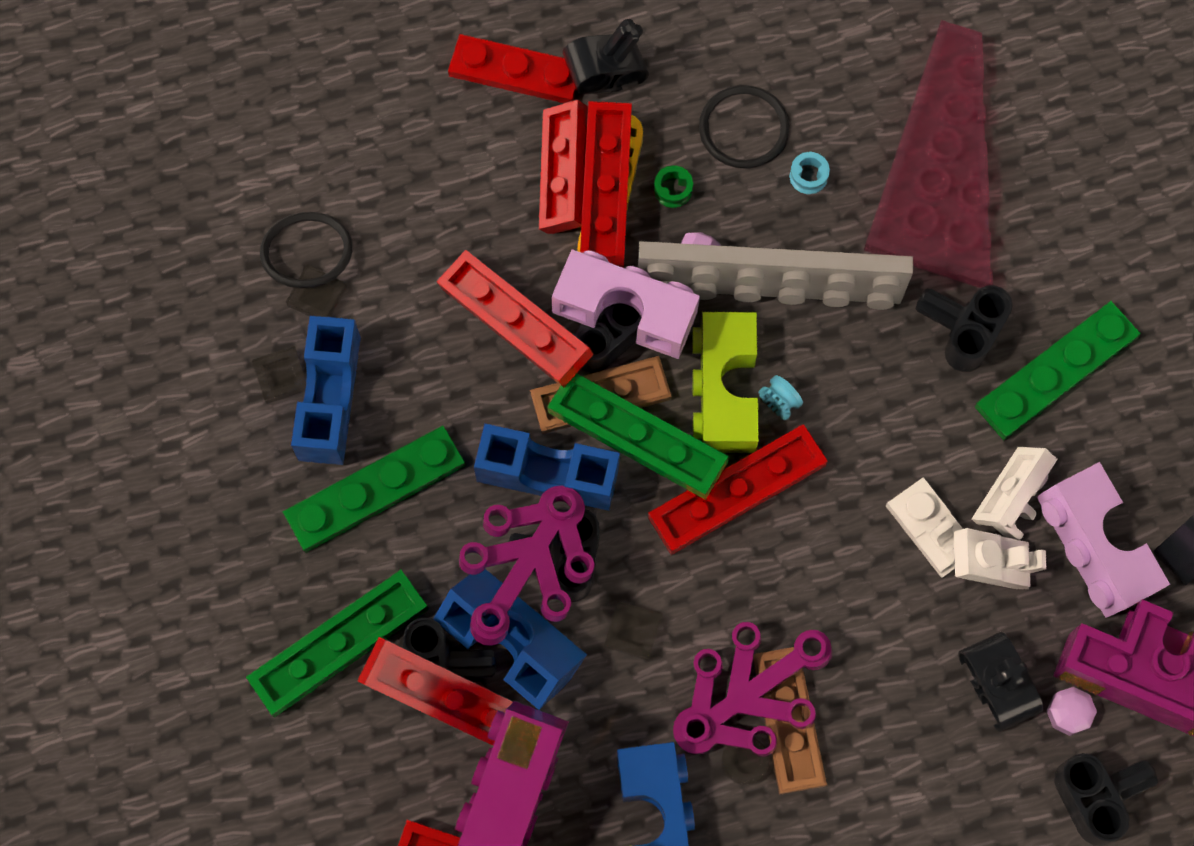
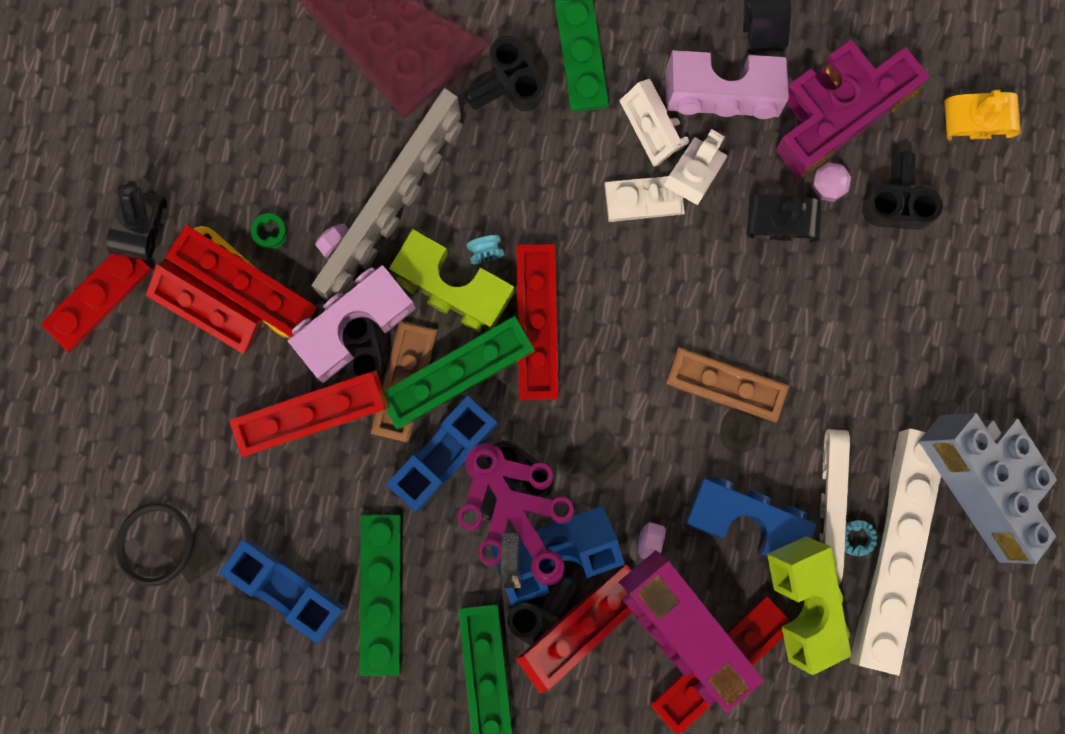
camera: 60 degrees left, 10 degrees up
(476, 582) = (511, 560): none -> clear smoke tile
(582, 727) = (650, 539): none -> lavender tile
(744, 89) = (245, 115): black tyre -> none
(746, 695) = (696, 406): magenta plant -> none
(813, 159) = (326, 114): medium azure bush -> none

